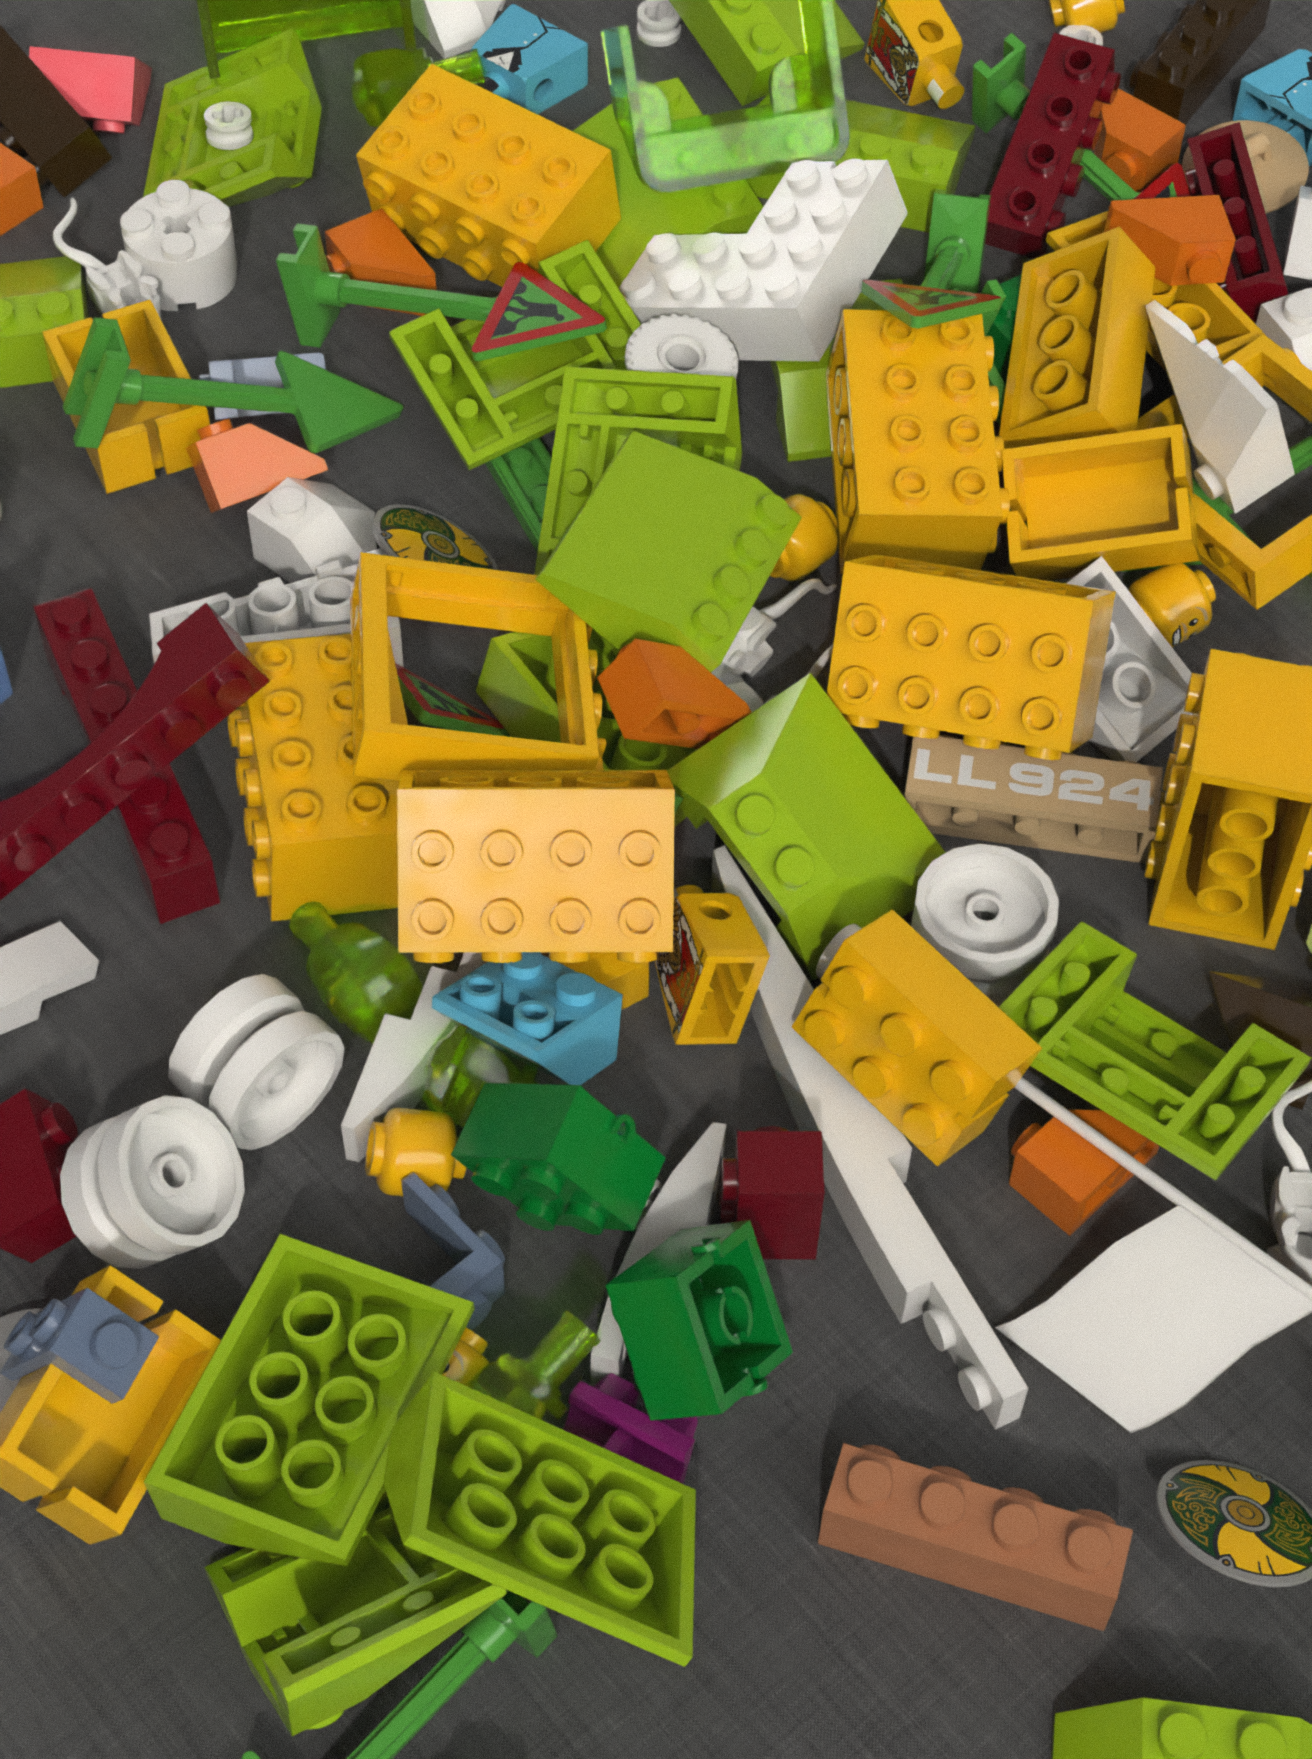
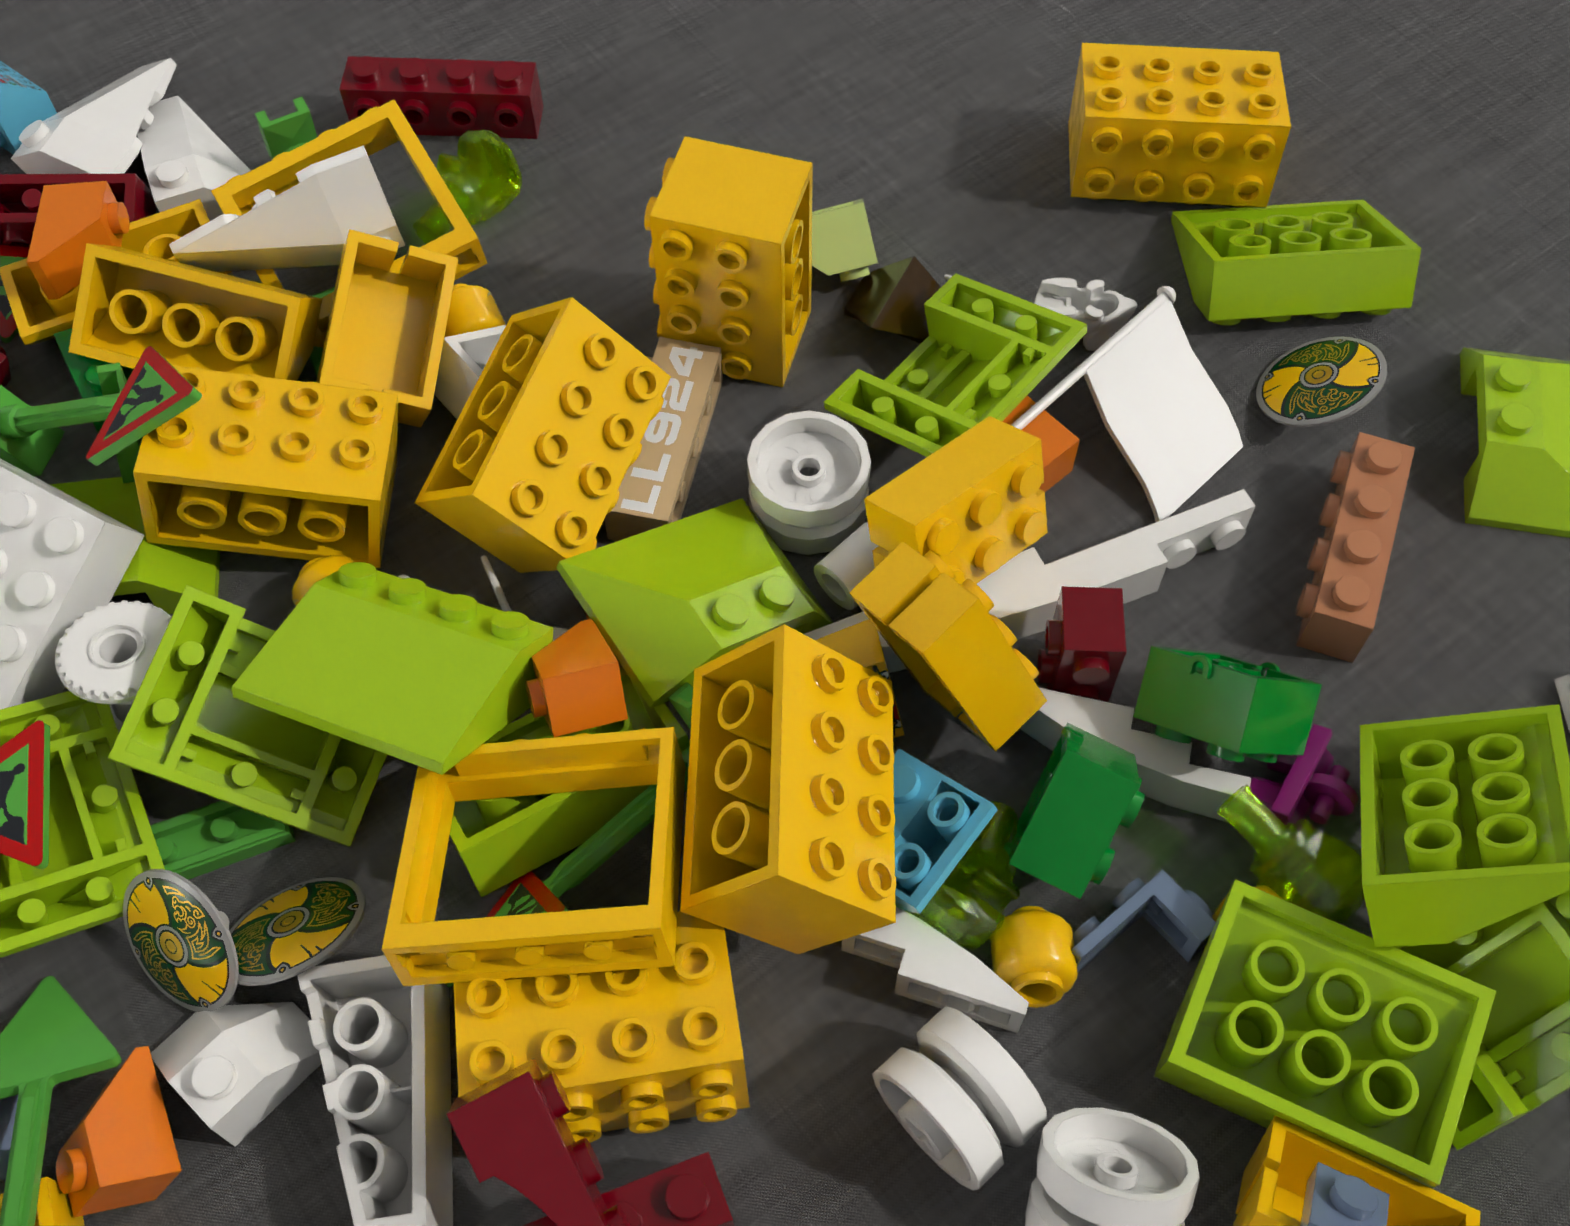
camera: 85 degrees left, 5 degrees up
(356, 971) = (832, 1014): clear neon green piece -> none
(420, 472) = (181, 940): none -> shield
(728, 1015) = (951, 642): none -> yellow piece

